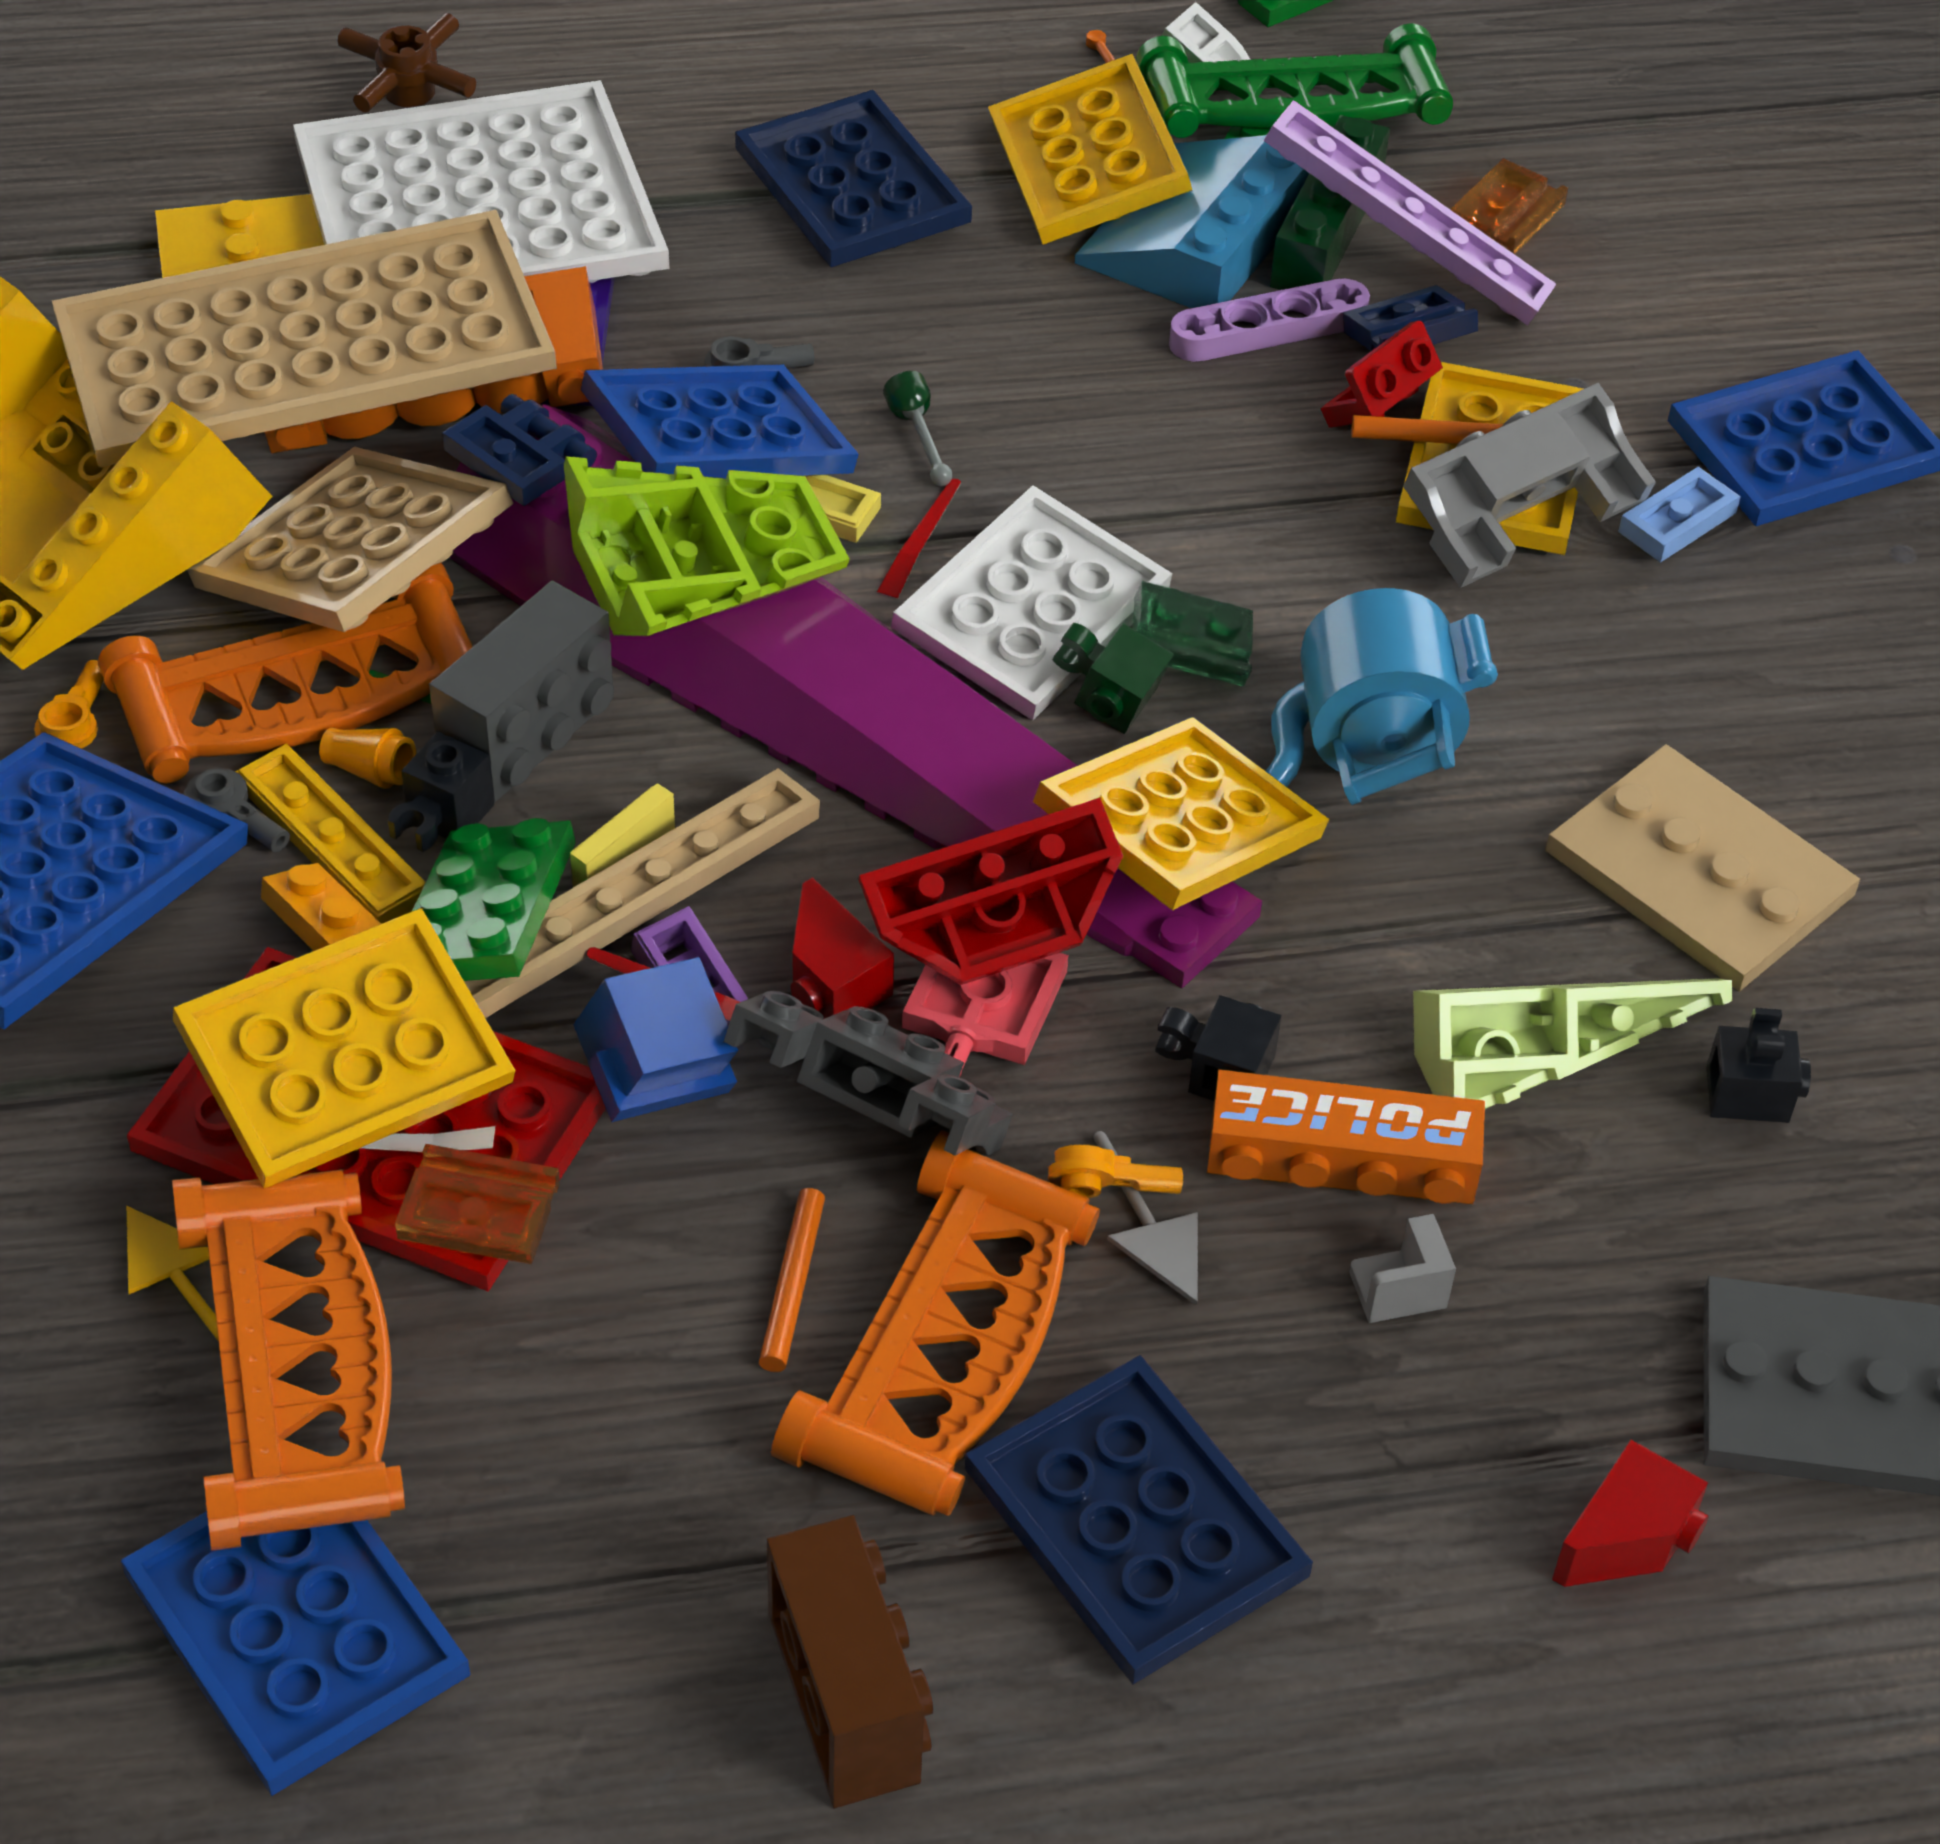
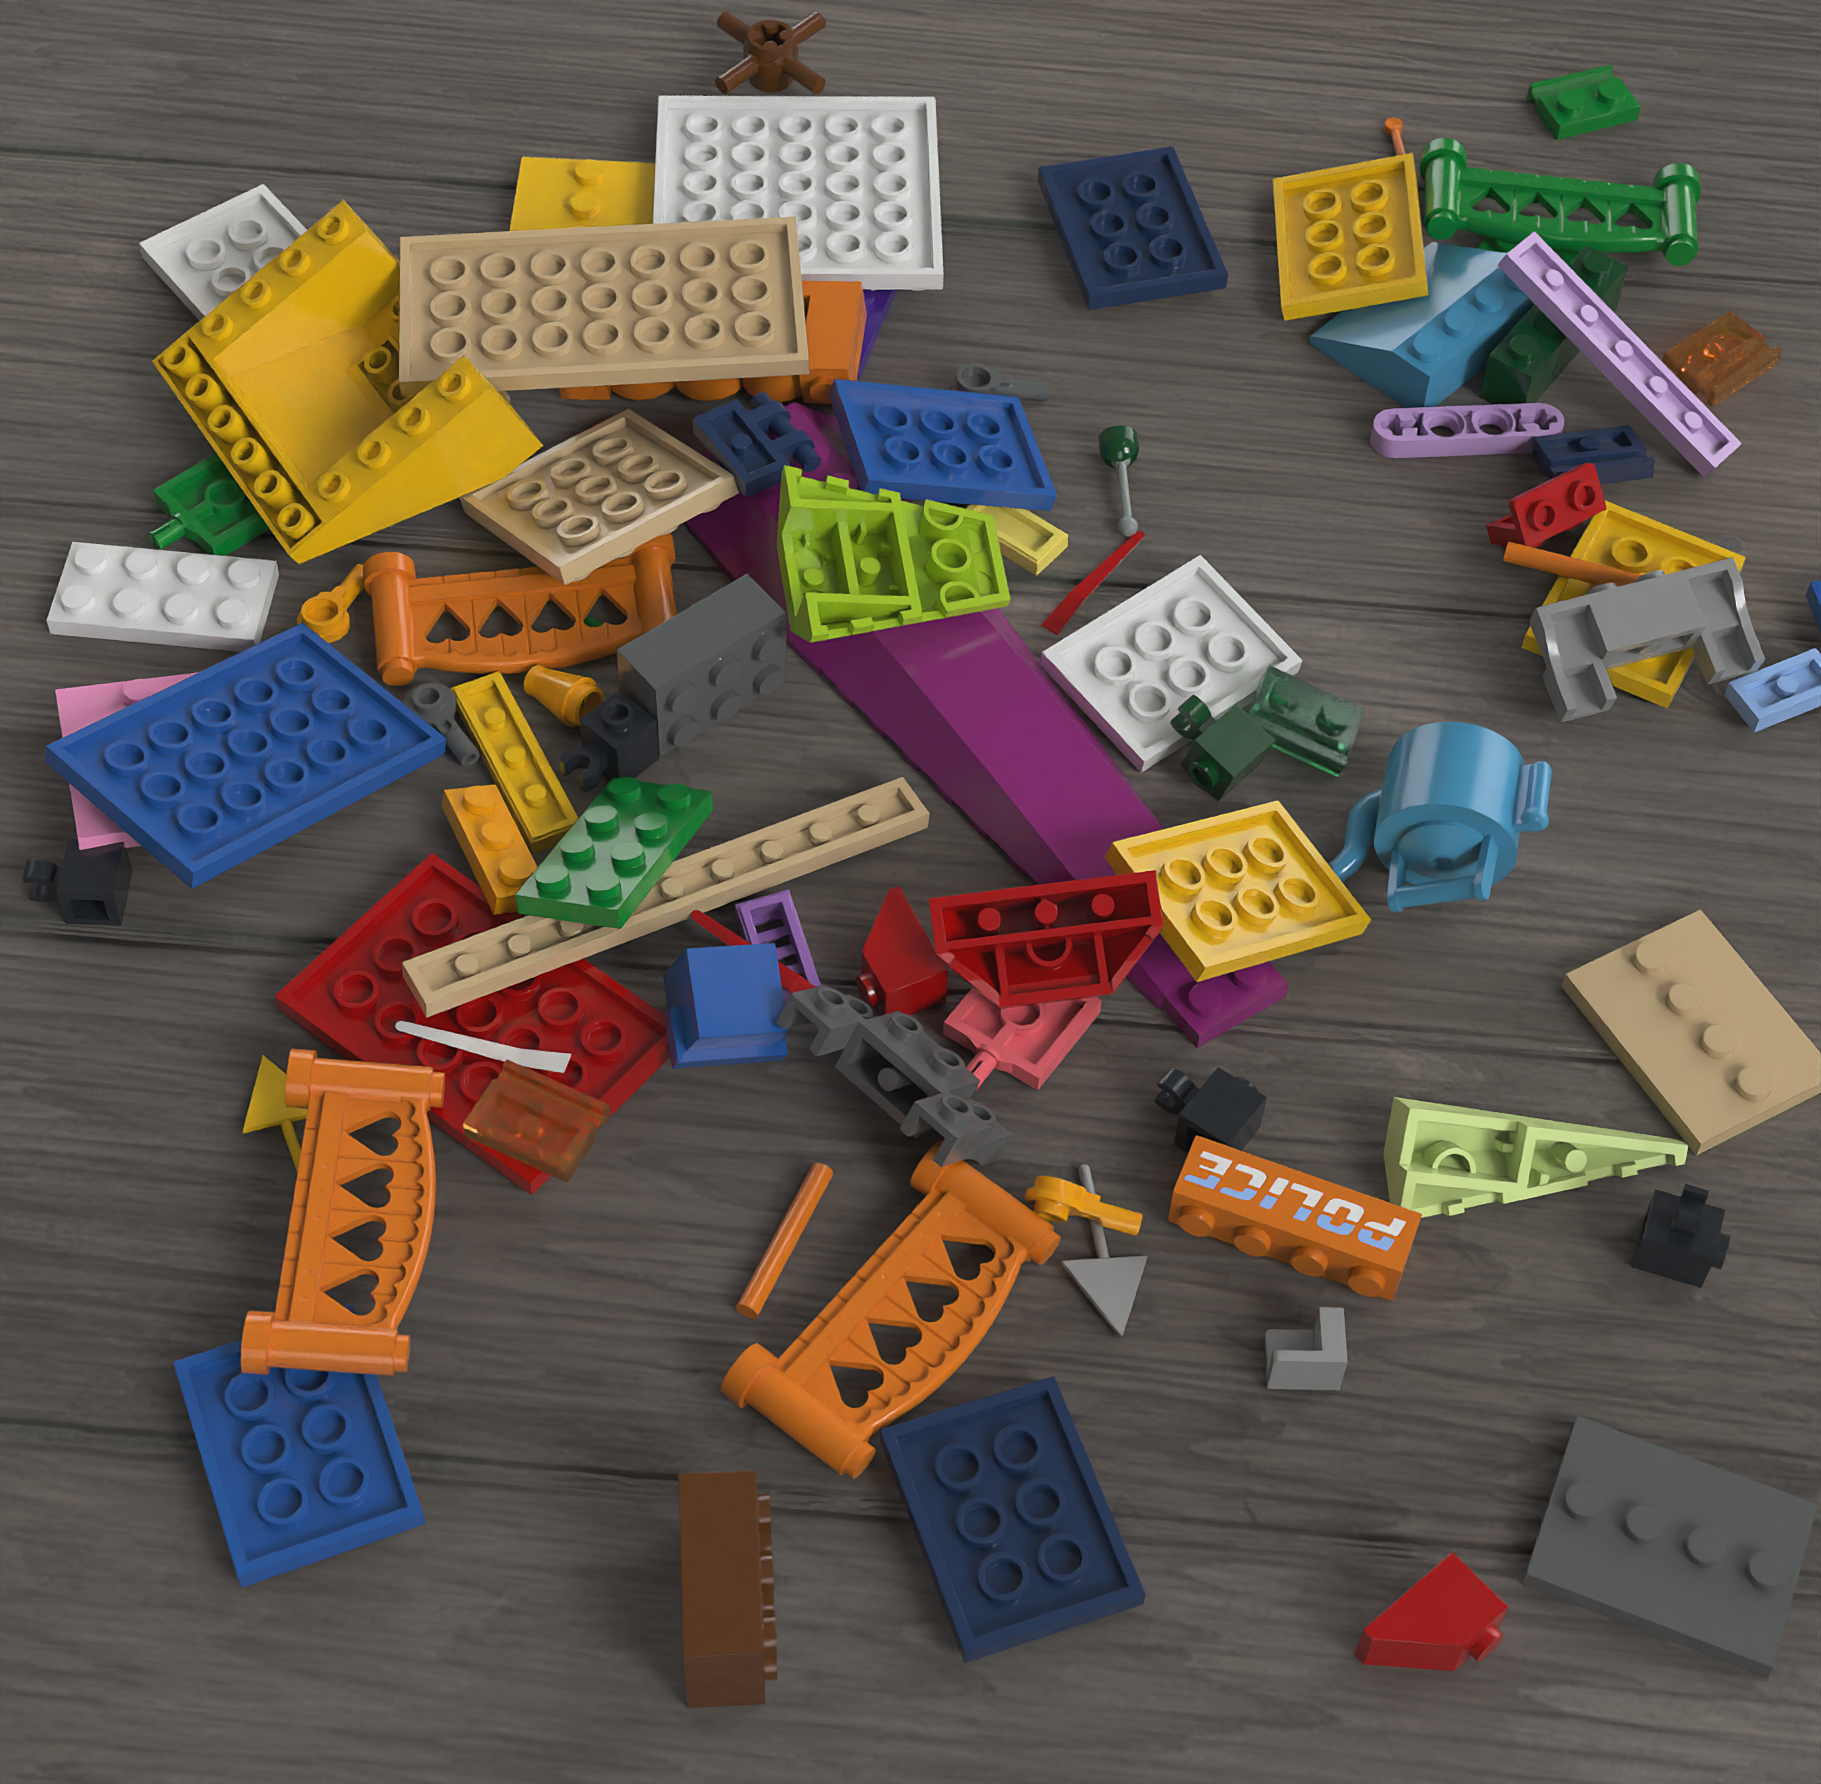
camera: 15 degrees right, 5 degrees up
(342, 1047) = (457, 962): yellow plate -> none
(625, 833) = (754, 812): light yellow tile -> none
(1204, 37) = (1489, 145): white plate -> none

